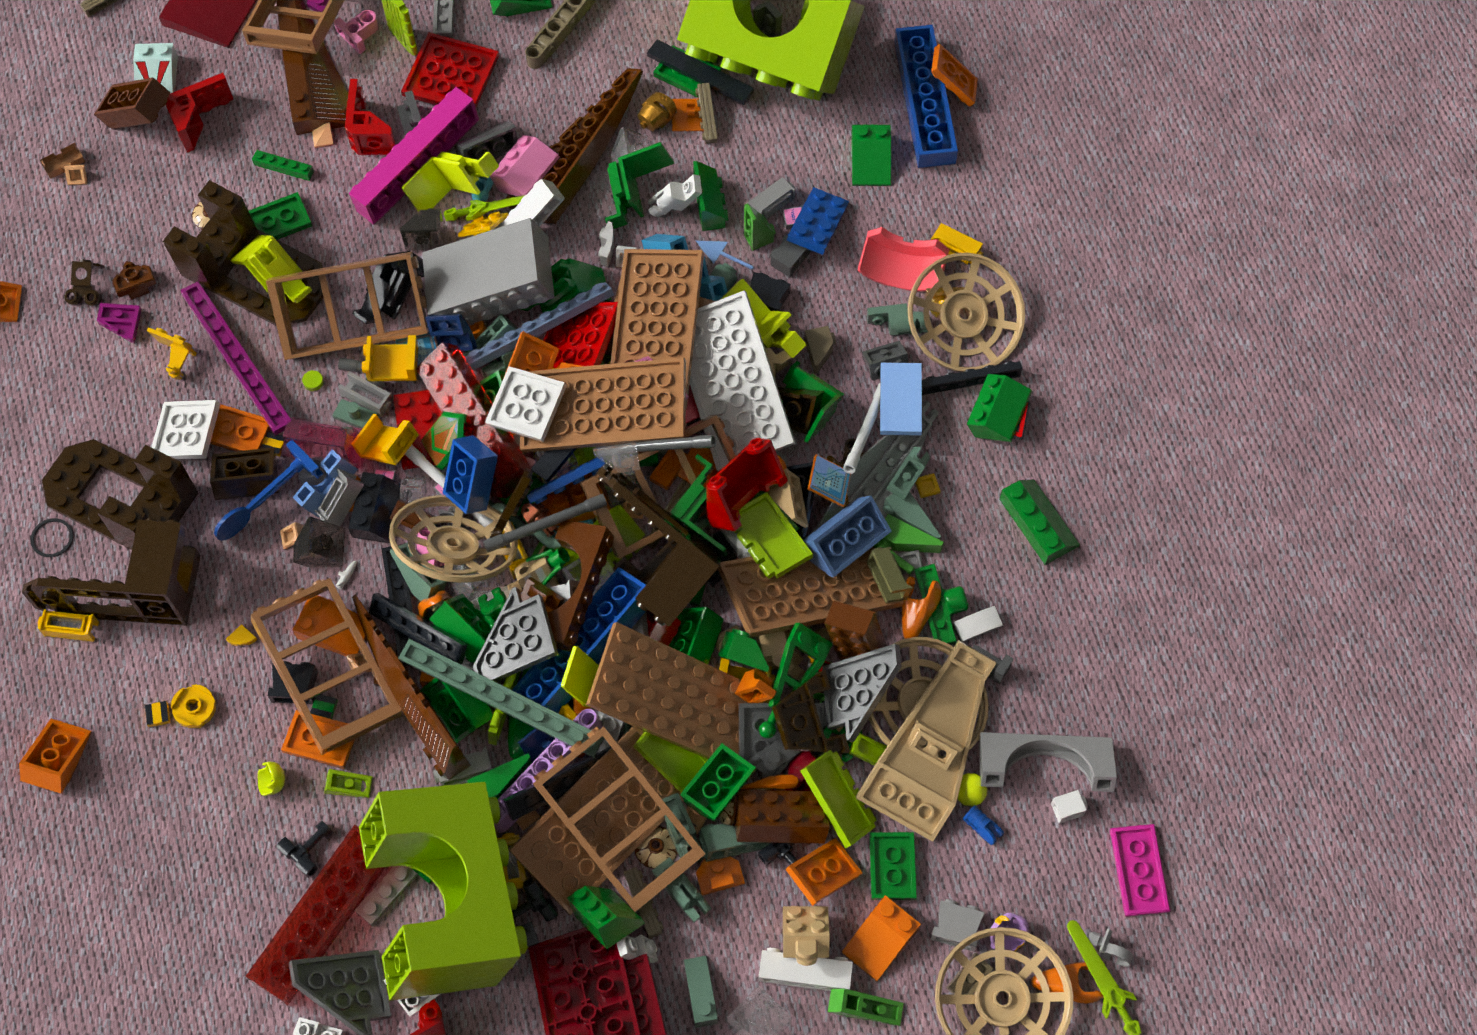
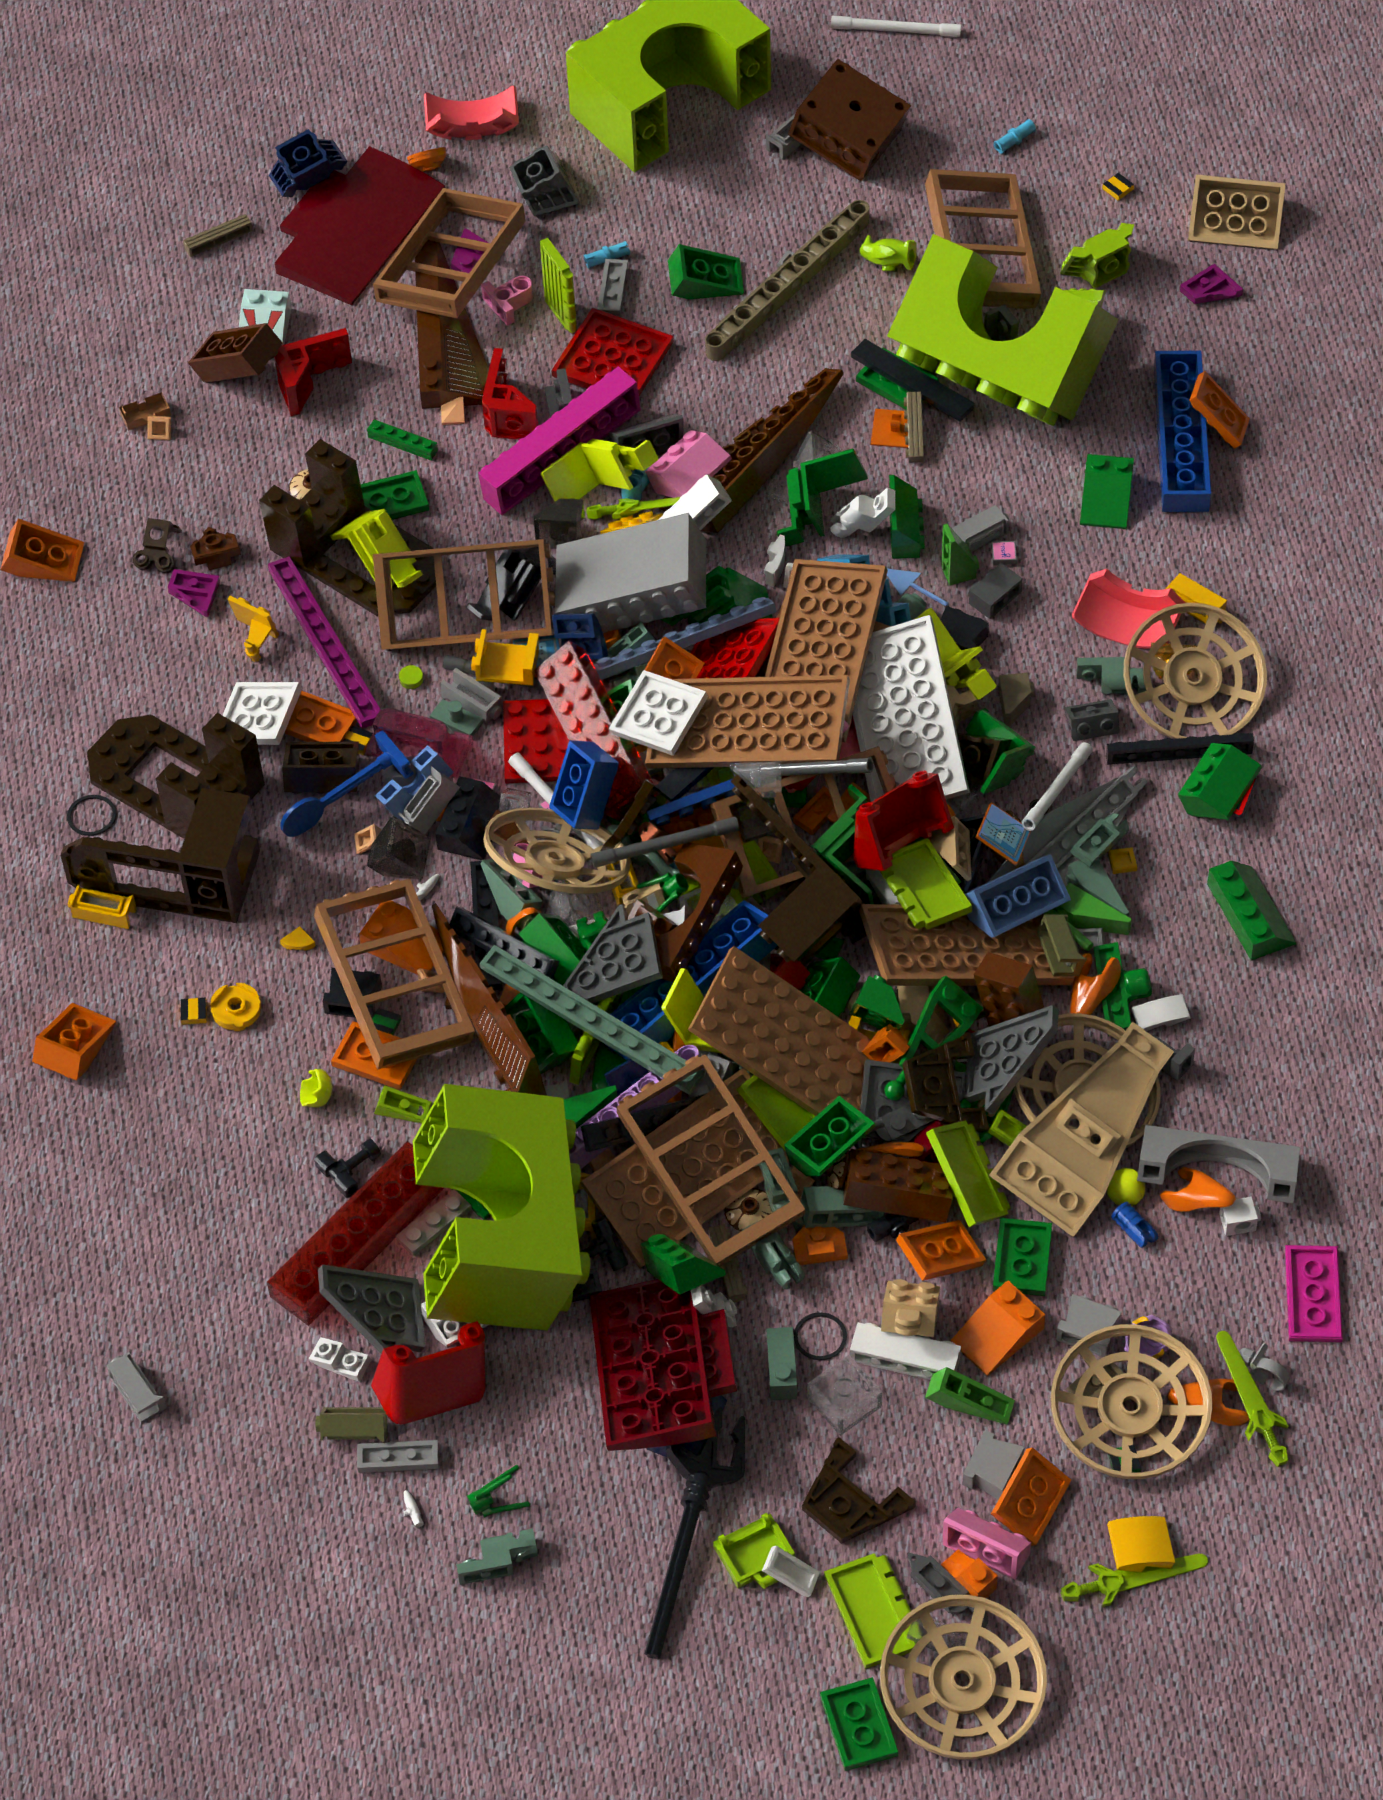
camera: 10 degrees right, 10 degrees down
(384, 442) = (486, 749): yellow panel -> none
(440, 437) = (552, 747): tile -> none
(653, 114) = (849, 423): pearl gold helmet -> none
(730, 981) = (820, 1314): none -> black piece
(817, 220) = (1031, 557): blue plate -> none
(901, 399) = (1102, 758): light blue tile -> none
(1035, 791) = (1200, 1192): none -> orange animal

